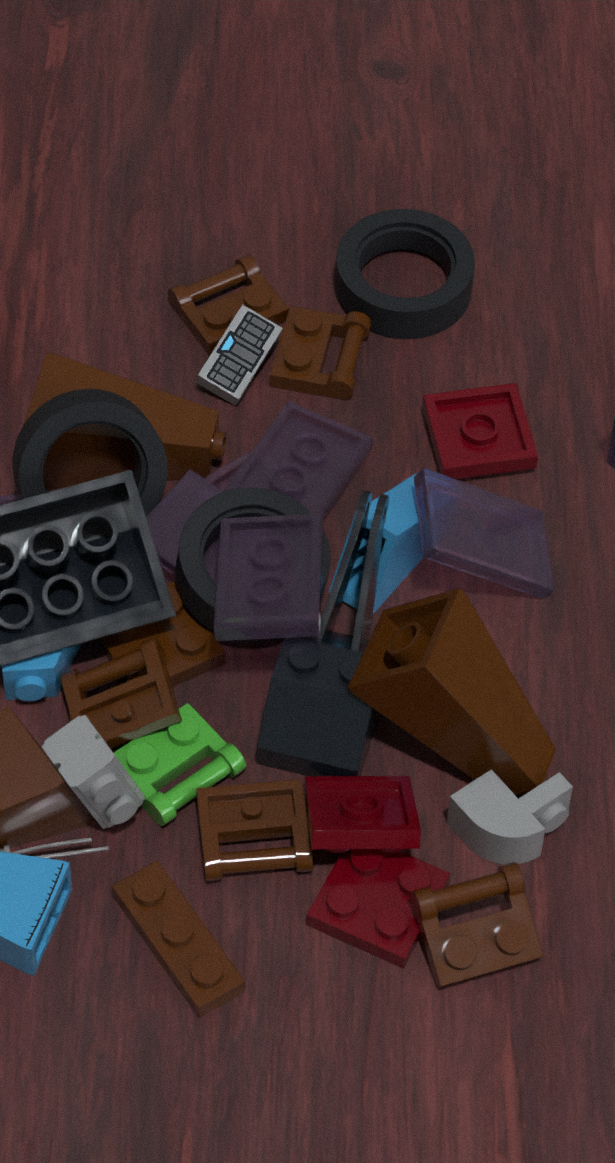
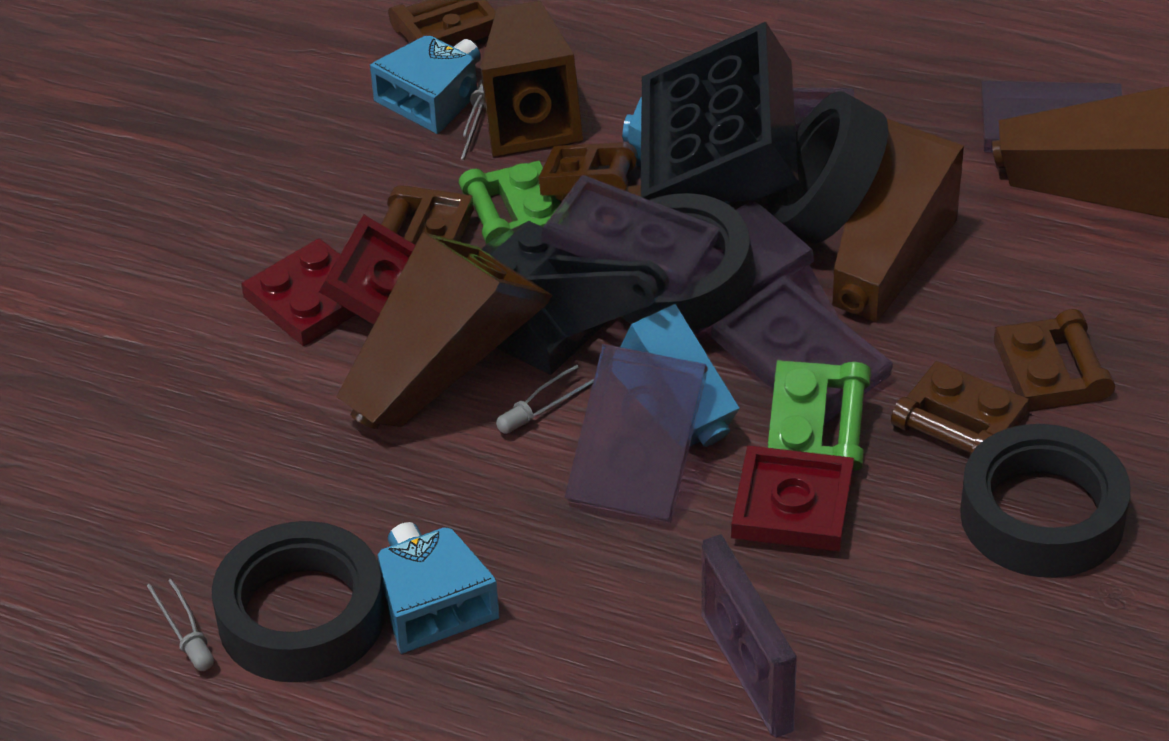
camera: 115 degrees right, 10 degrees down
(94, 772) = (499, 114): light grey brick -> none
(178, 939) = (351, 171): reddish brown plate -> none
(238, 355) = (970, 341): tile -> none
(381, 445) = (801, 407): none -> bright green plate
(483, 942) = (234, 326): reddish brown plate -> none
(500, 824) = (317, 374): light grey brick -> none

